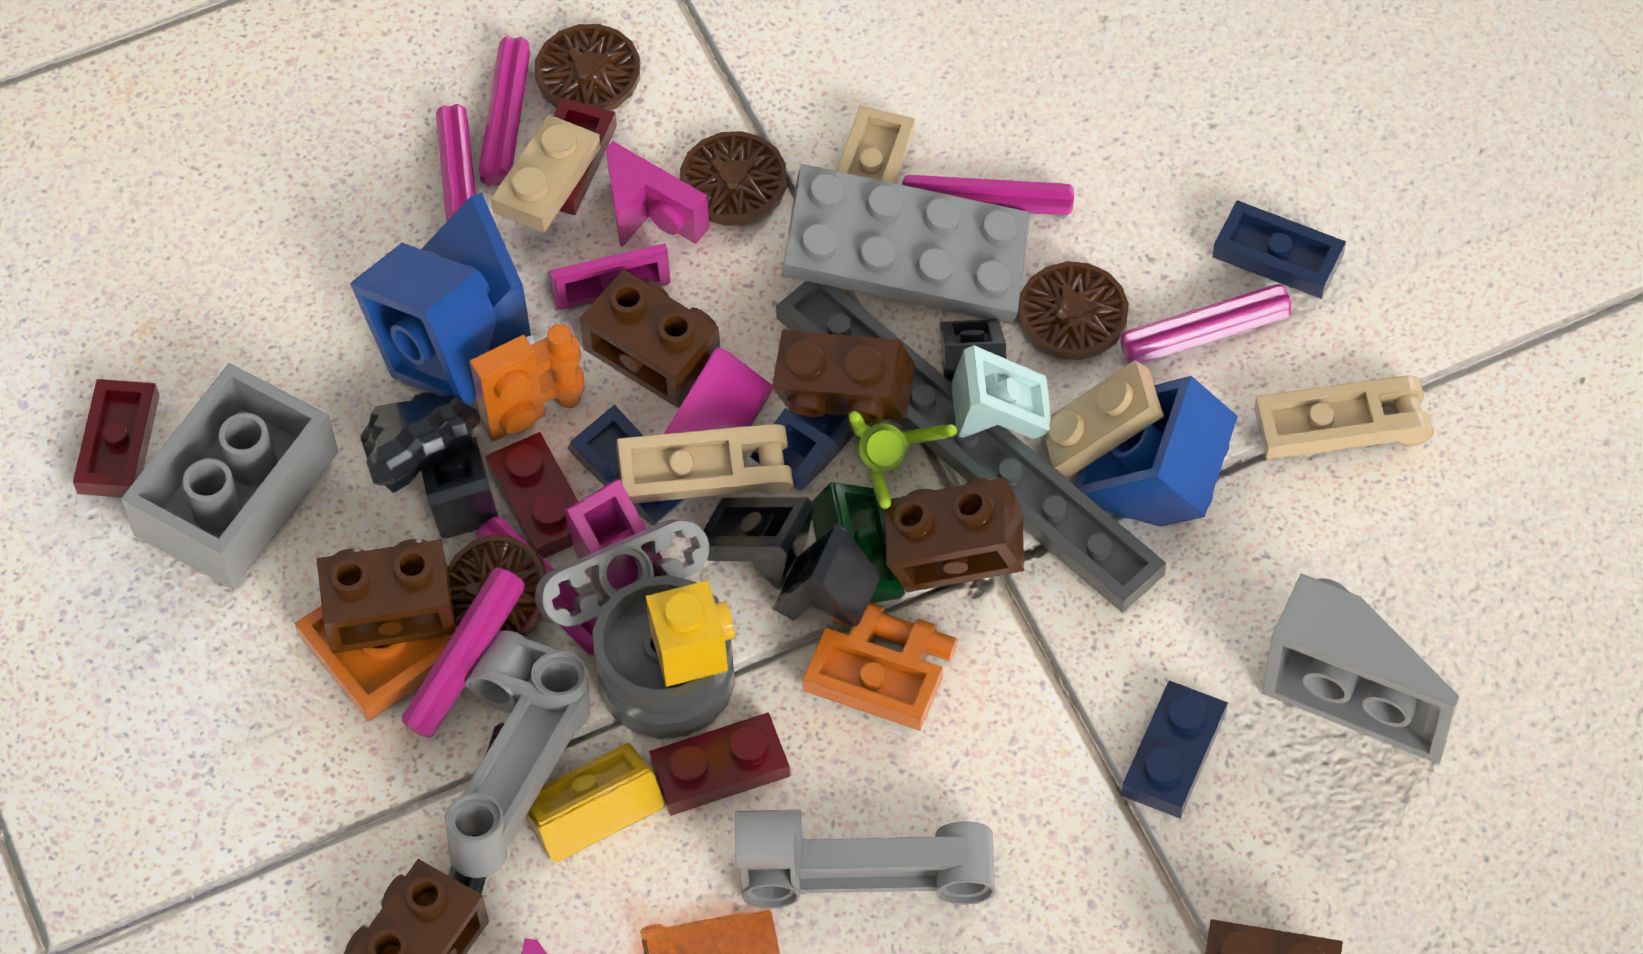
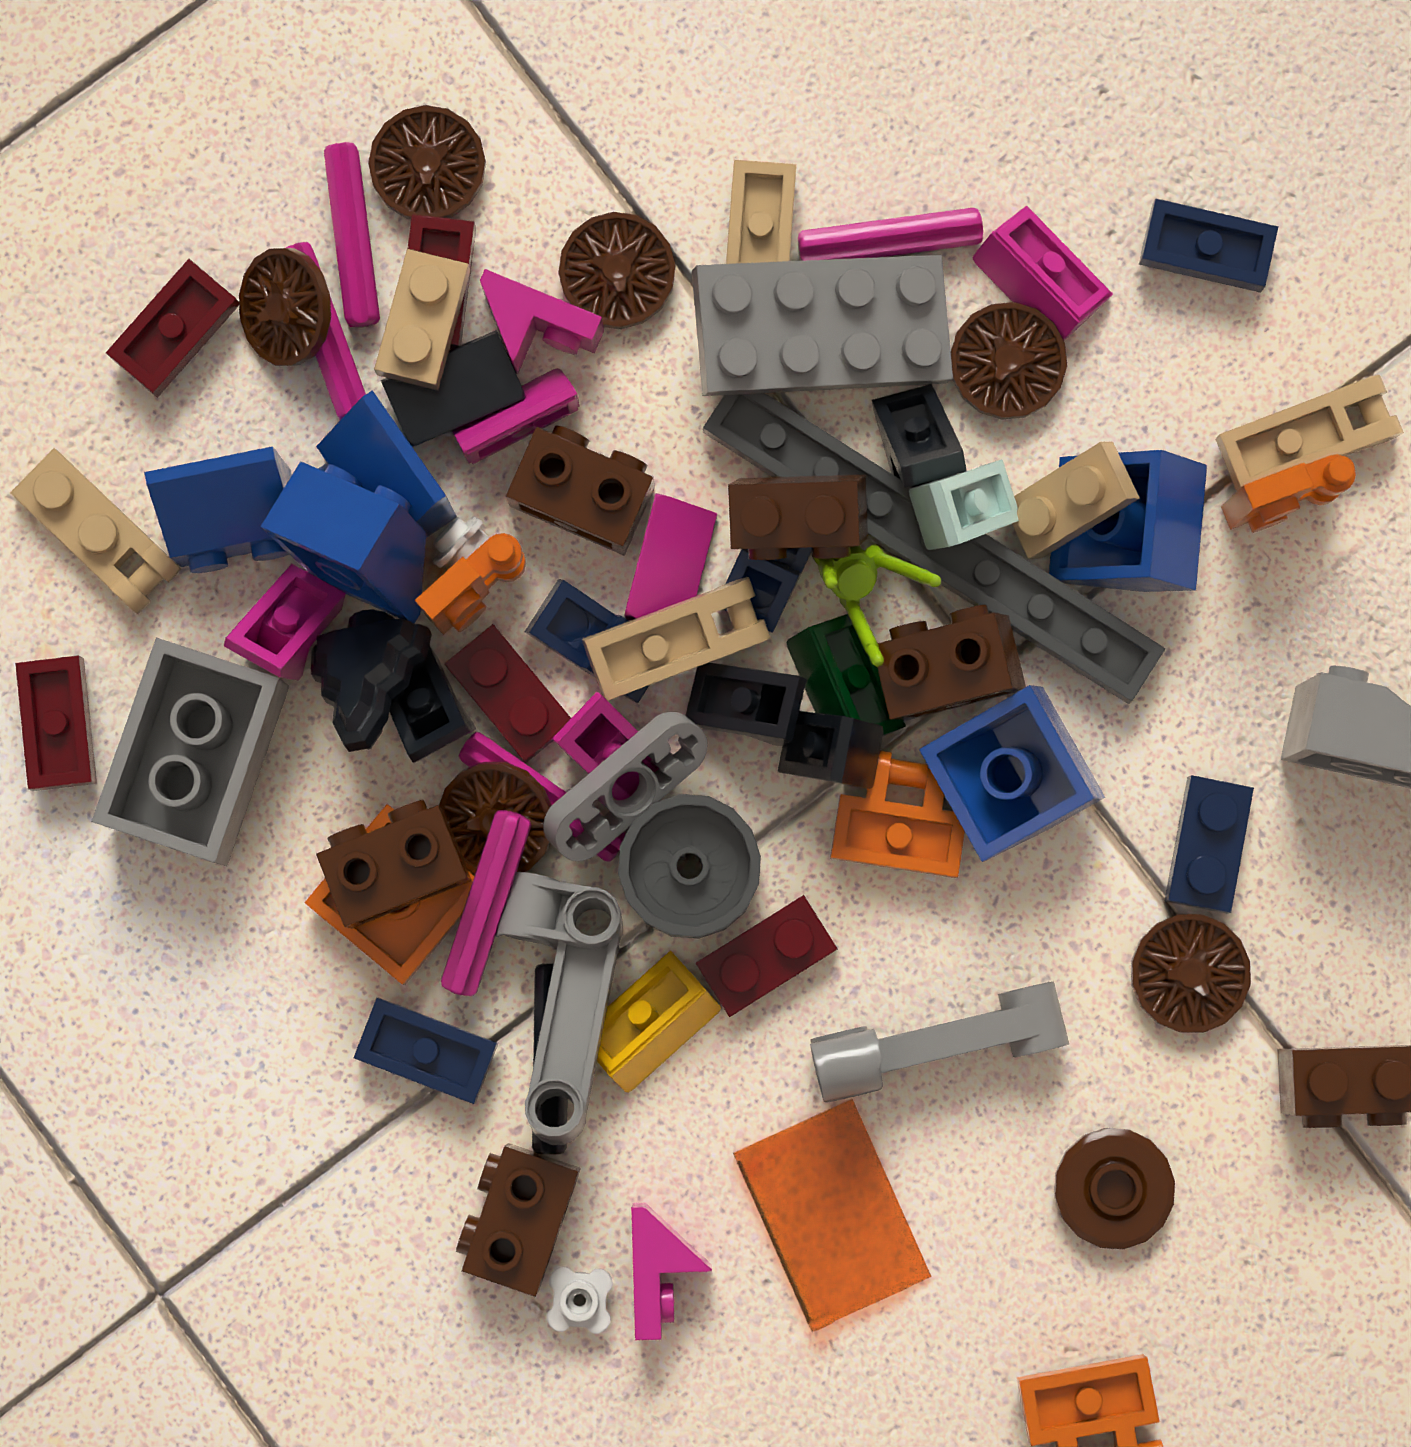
camera: 15 degrees left, 25 degrees up
(203, 295) = (93, 529): none -> tan plate
(309, 278) = (217, 507): none -> blue slope
(324, 150) = (173, 328): none -> dark red plate
(348, 391) = (286, 623): none -> dark pink slope
(370, 777) = (425, 1050): none -> dark blue plate
(427, 146) = (284, 306): none -> reddish brown wheel
(573, 237) = (473, 384): none -> black slope
(689, 632) = (725, 872): yellow brick -> none
(994, 635) = (1011, 772): none -> blue slope
(1114, 239) = (1041, 272): none -> dark pink slope
(1131, 857) = (1190, 973): none -> reddish brown wheel
(1206, 324) = (1148, 349): axle -> none
(1302, 438) = (1277, 495): none -> orange plate

